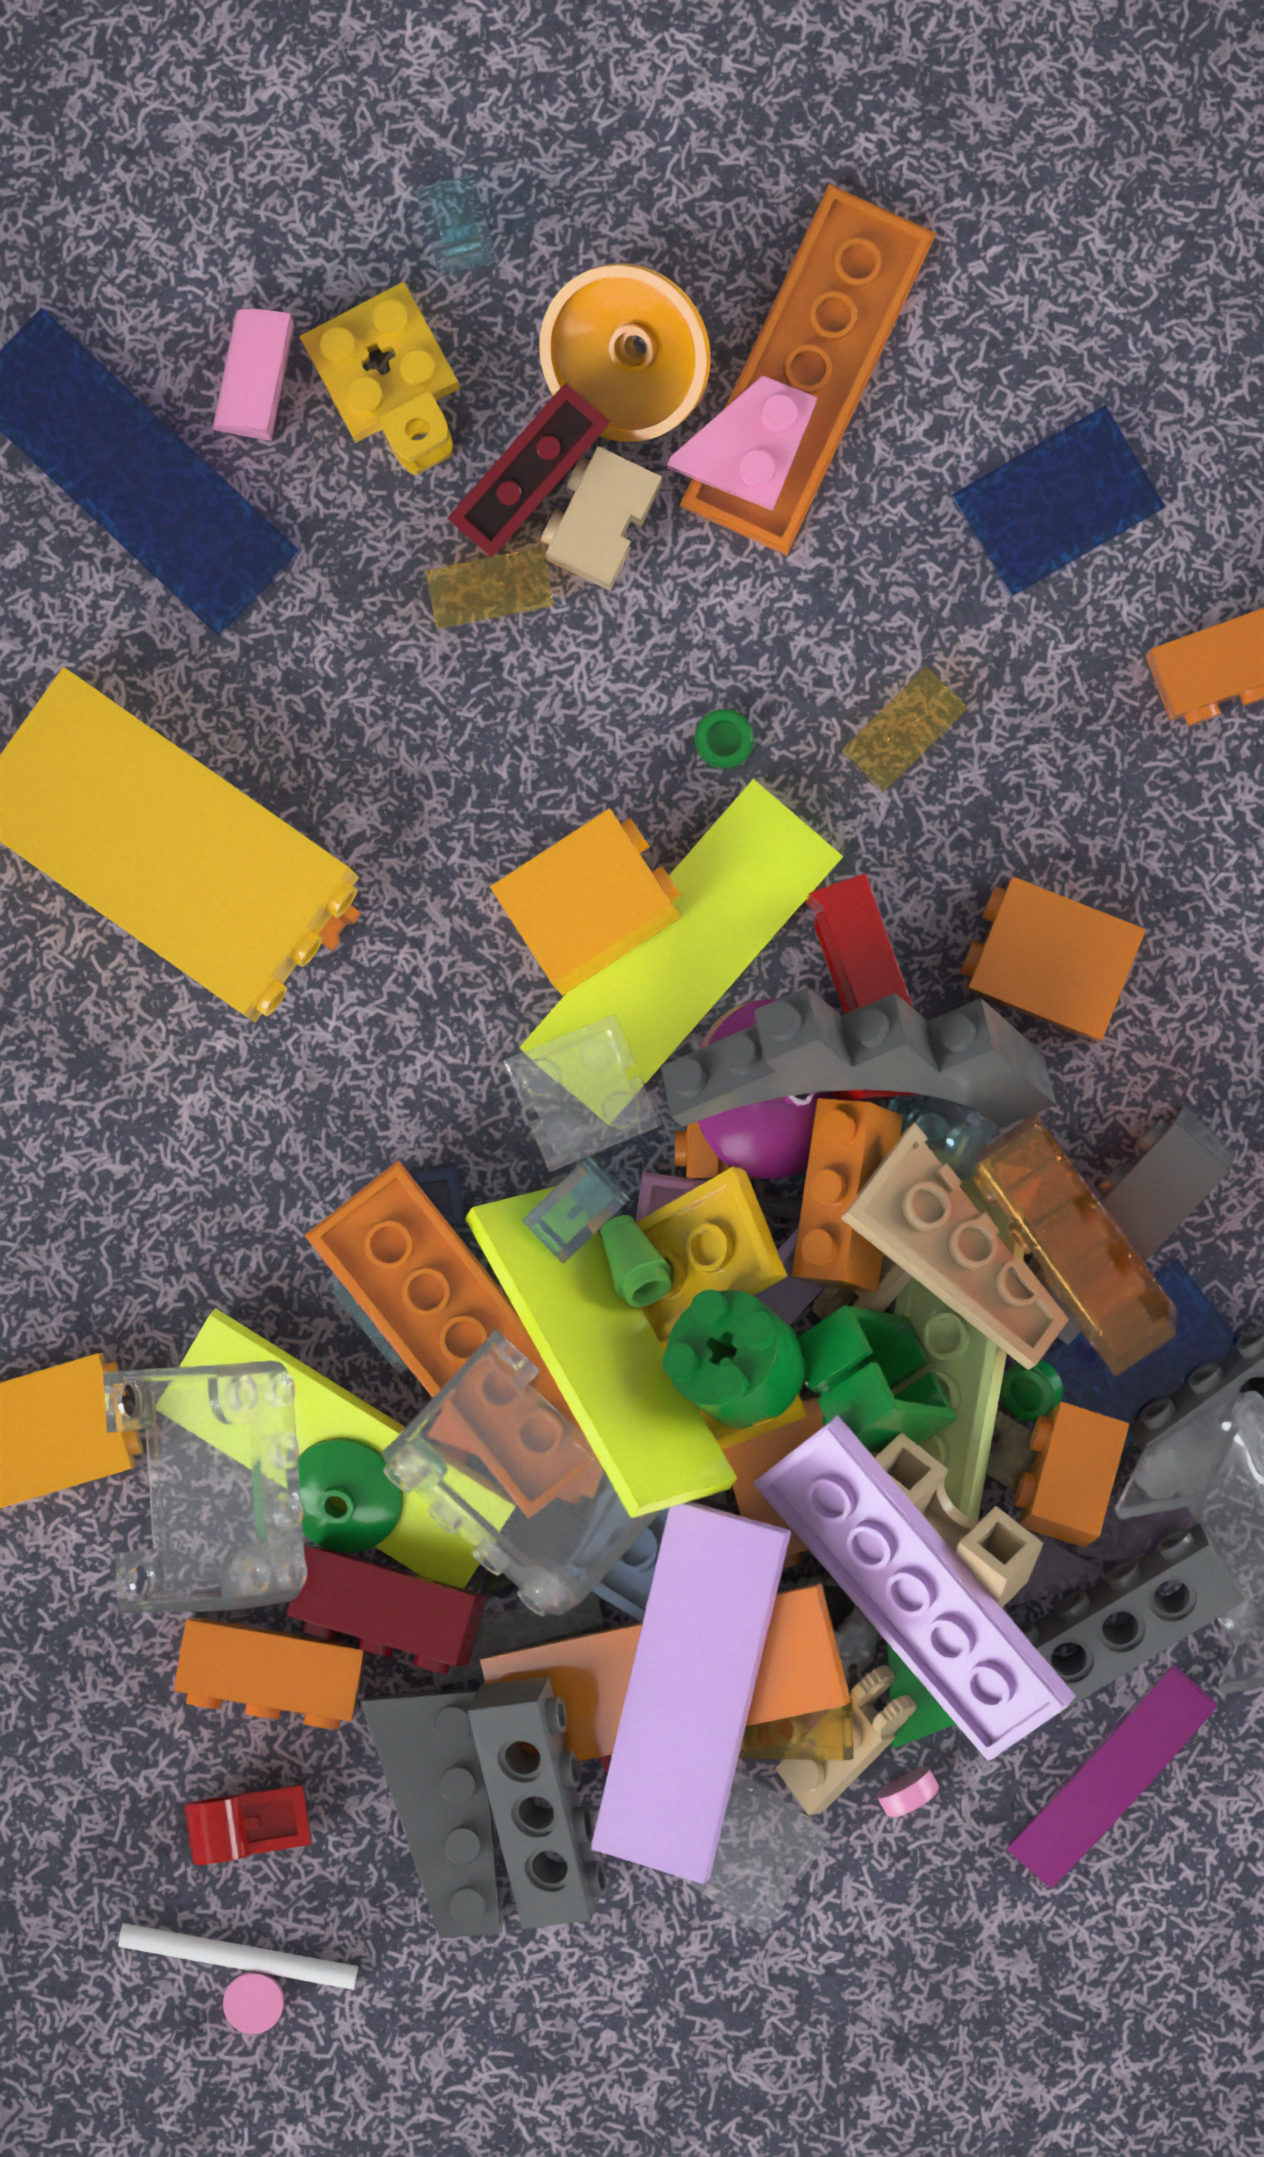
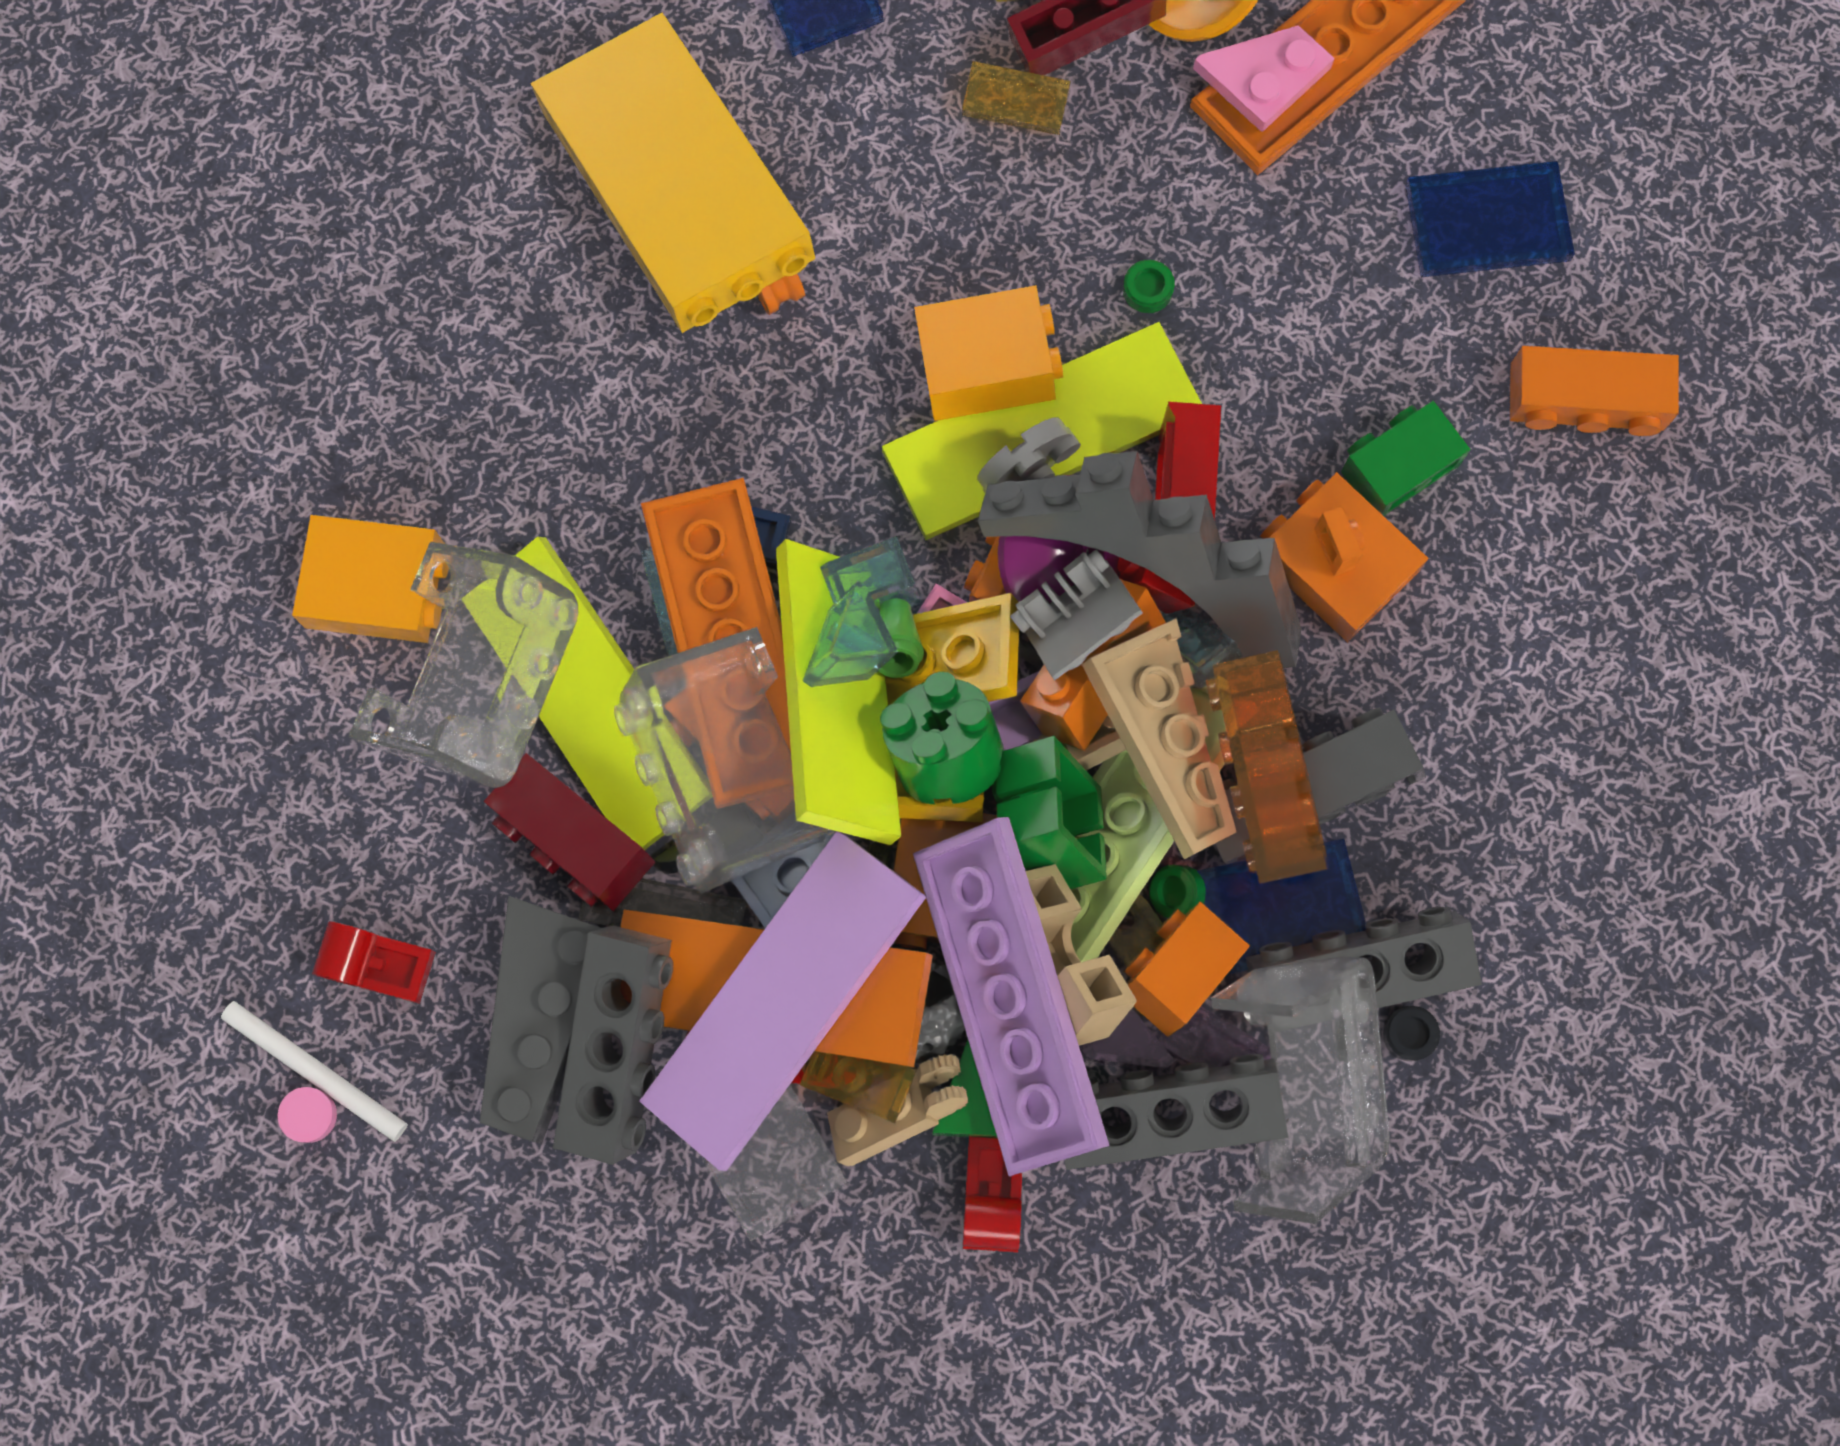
camera: 25 degrees right, 10 degrees down
(269, 1672) = (450, 845): orange brick -> none
(356, 1475) = (596, 737): green dish -> none
(582, 1092) = (914, 491): clear piece -> none
(592, 1294) = (851, 642): none -> clear light blue slope
(605, 502) = (1133, 72): tan brick -> none
(689, 1011) = (1043, 447): none -> light grey plate
(816, 1169) = (1079, 618): none -> light grey hinge
(904, 729) = (1295, 334): clear yellow plate -> none
(908, 1792) = (929, 1181): bright pink tile -> none
(978, 1787) = (991, 1199): none -> red plate
(1048, 957) = (1340, 540): none -> orange plate
(1076, 822) = (1405, 458): none -> green brick
(1112, 1776) = (1108, 1245): magenta slope -> none

